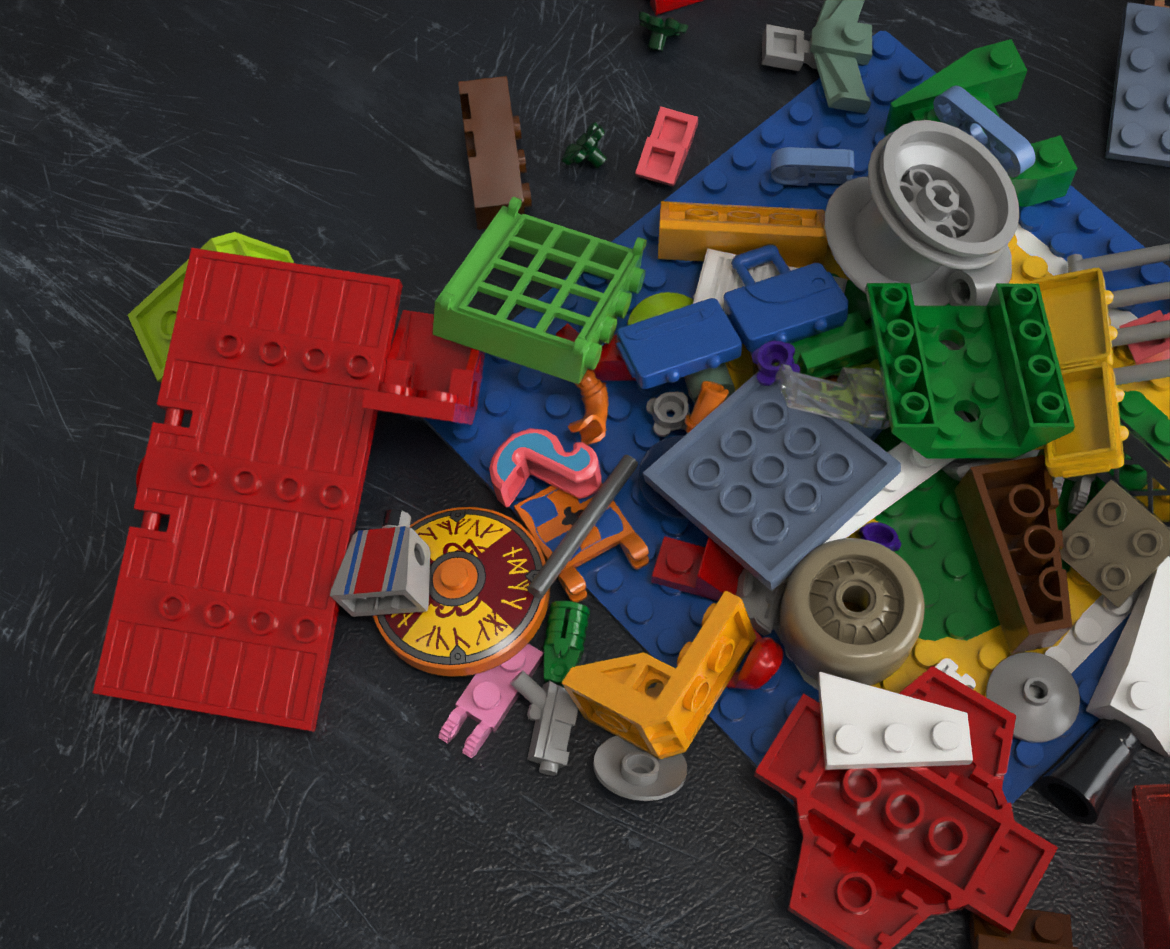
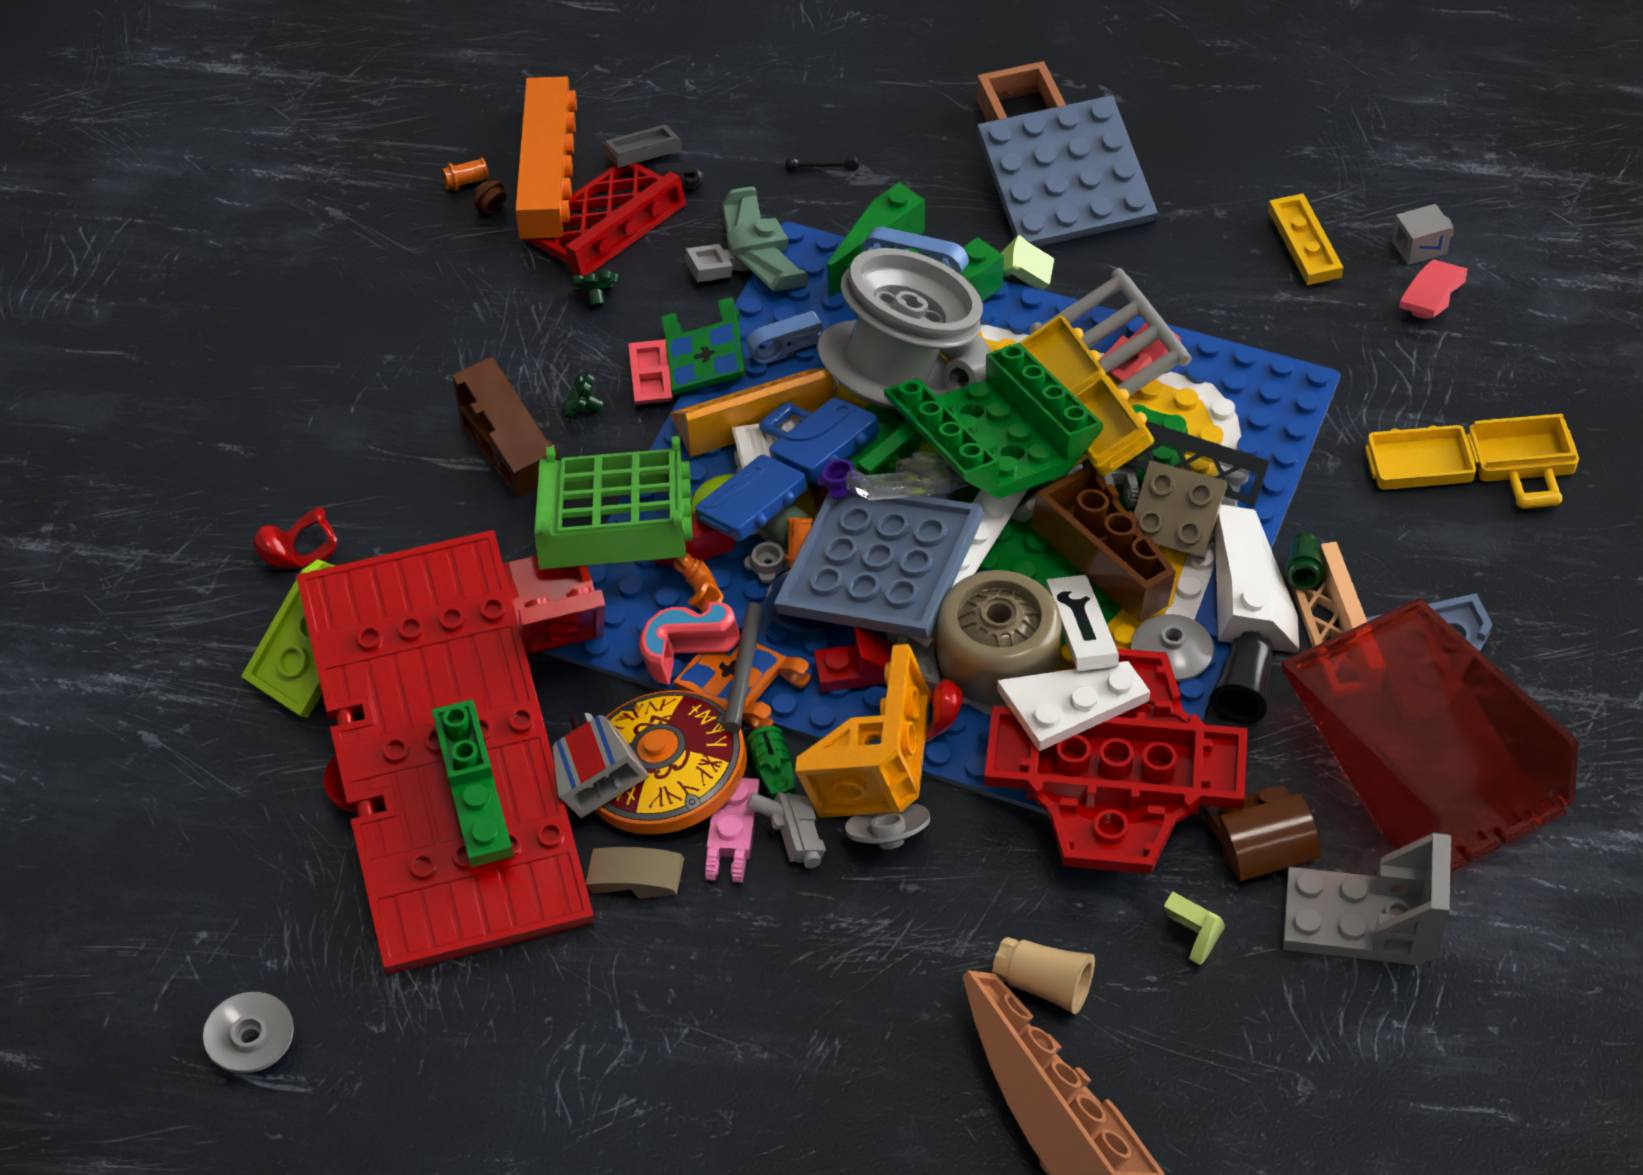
camera: 25 degrees left, 15 degrees down
(229, 189) = (278, 546): none -> red piece
(251, 548) = (472, 783): none -> green slope
(375, 699) = (637, 869): none -> dark tan slope
(729, 150) = (704, 354): none -> green flag
(945, 638) = (1083, 623): none -> white tile
(1103, 179) = (1027, 263): none -> yellowish green tile

